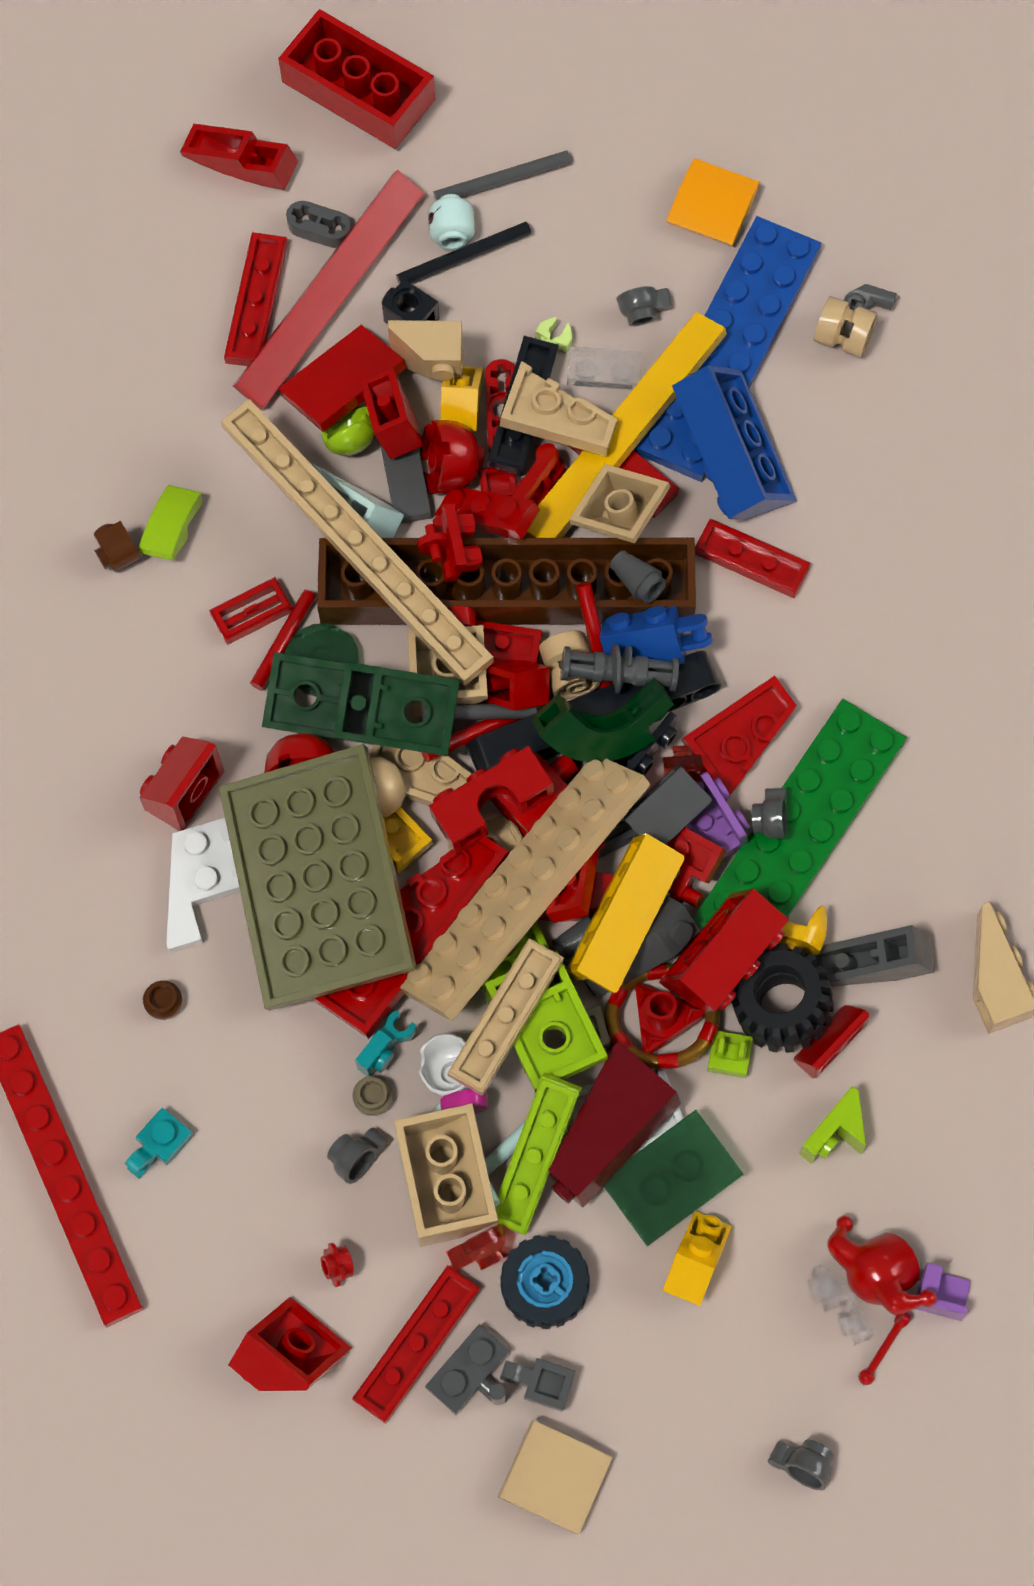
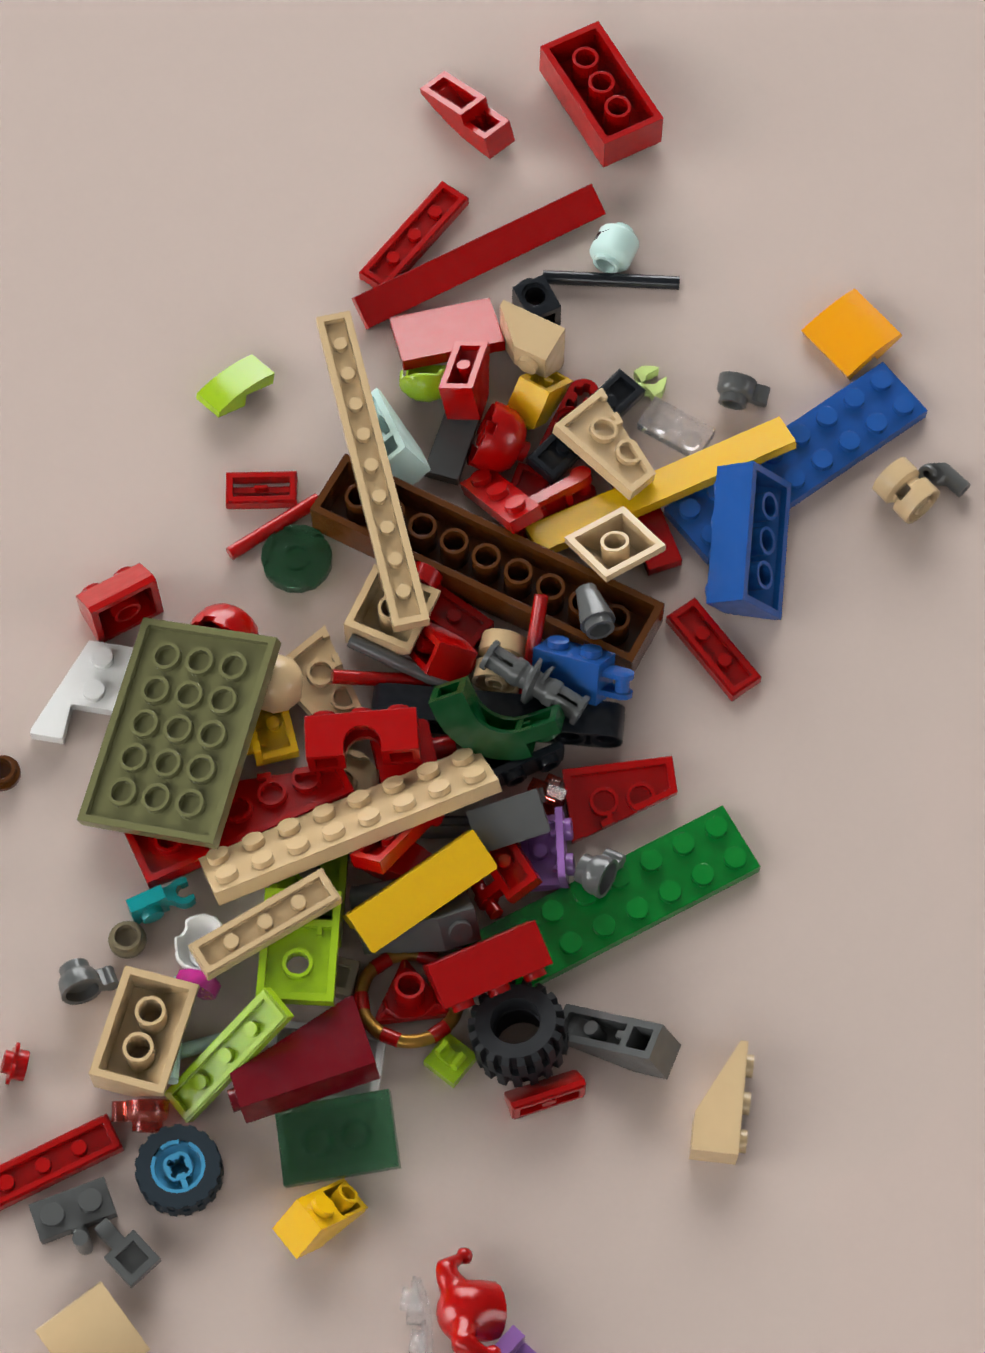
camera: 25 degrees right, 5 degrees down
(115, 547) = (179, 384): reddish brown plate -> none
(319, 223) = (506, 196): dark grey beam -> none
(361, 703) = (301, 607): dark green bracket -> none
(445, 542) = (456, 495): red hips -> none
(506, 176) = (685, 231): dark grey bar -> none
(806, 937) = (568, 992): yellow plate -> none
(844, 1121) = (512, 1163): lime slope -> none

